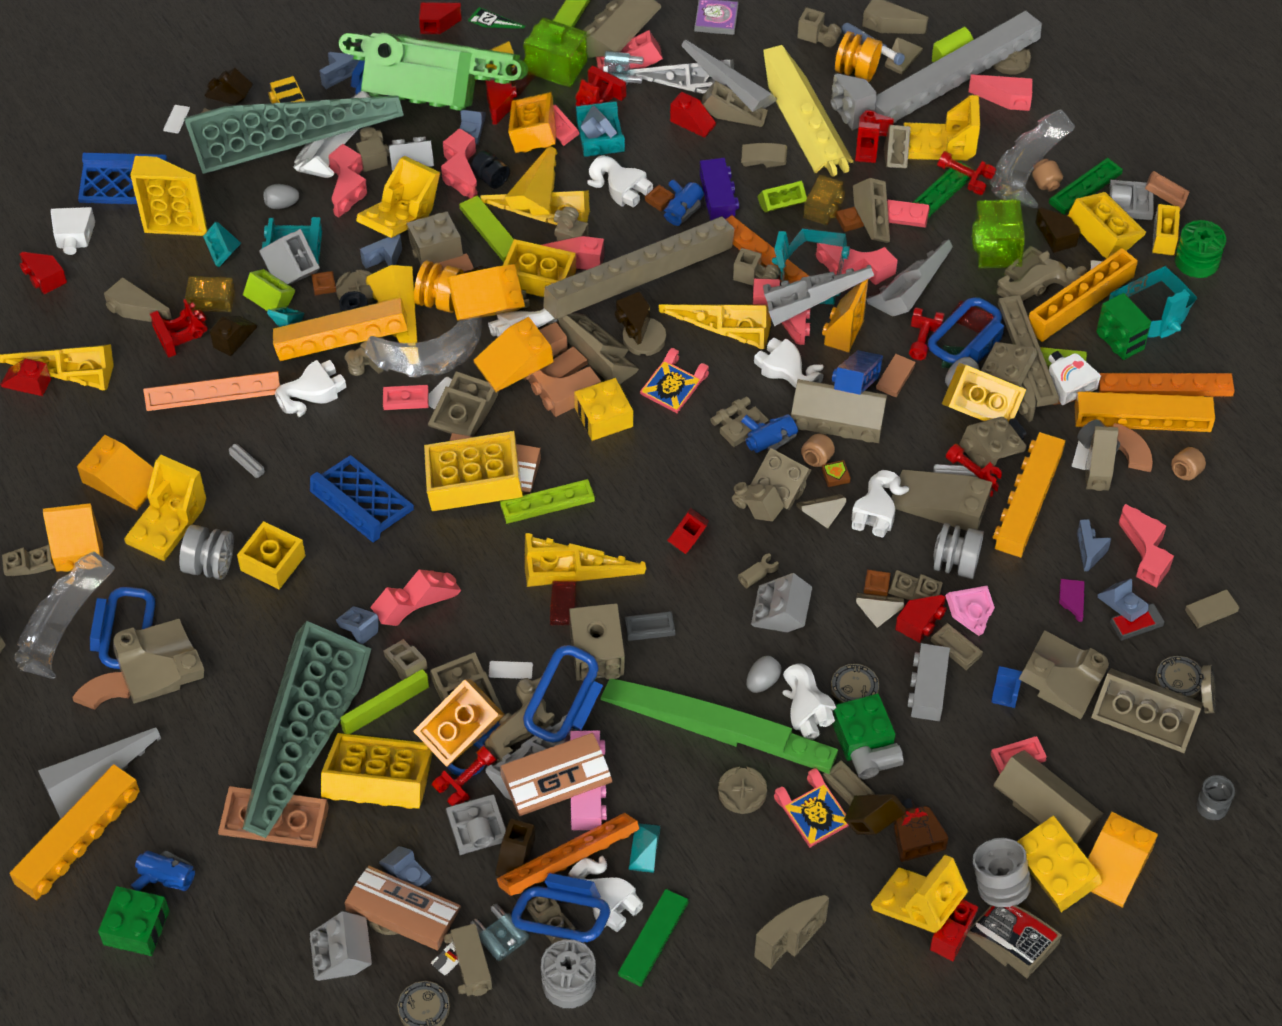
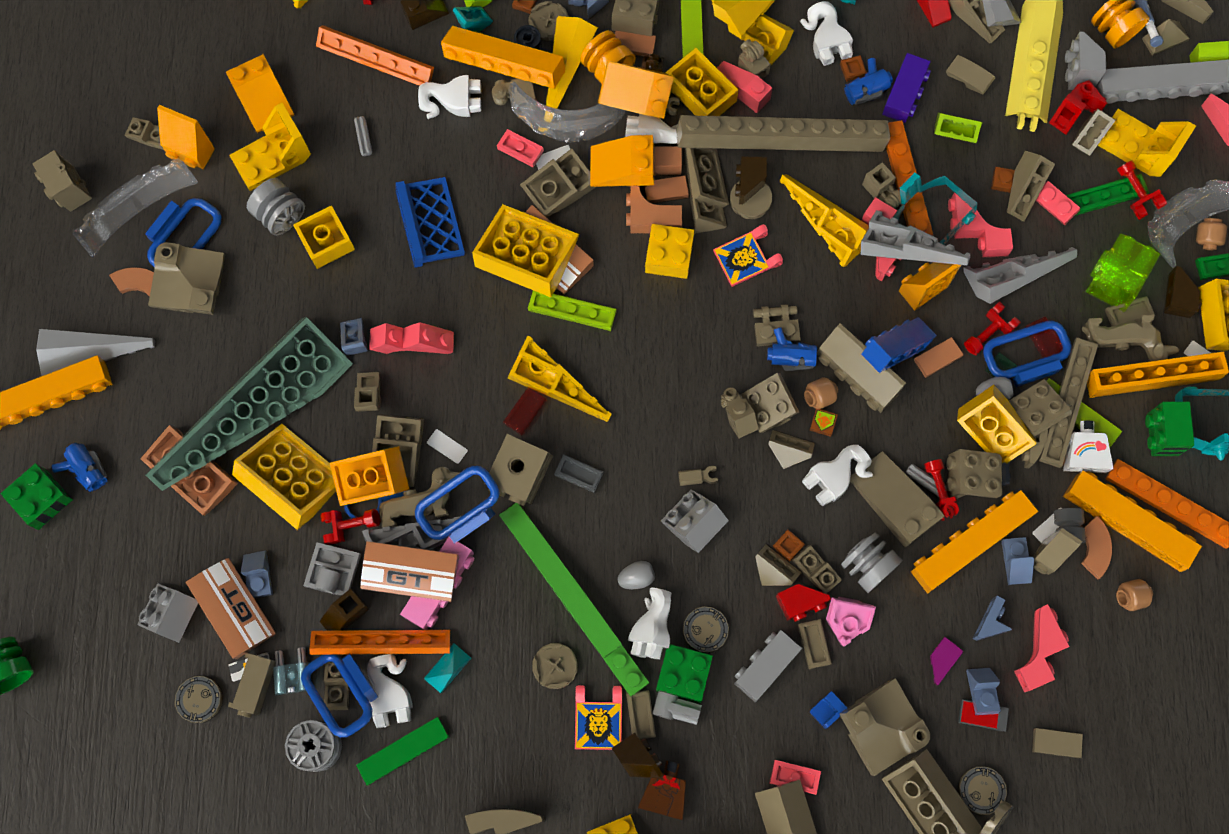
camera: 35 degrees right, 20 degrees up
(384, 702) = (329, 419): lime tile -> none
(688, 530) = (665, 406): red slope -> none
(785, 363) = (850, 294): white hips -> none
(823, 200) = (991, 149): clear yellow brick -> none
(1077, 491) = (1017, 561): none -> sand blue slope

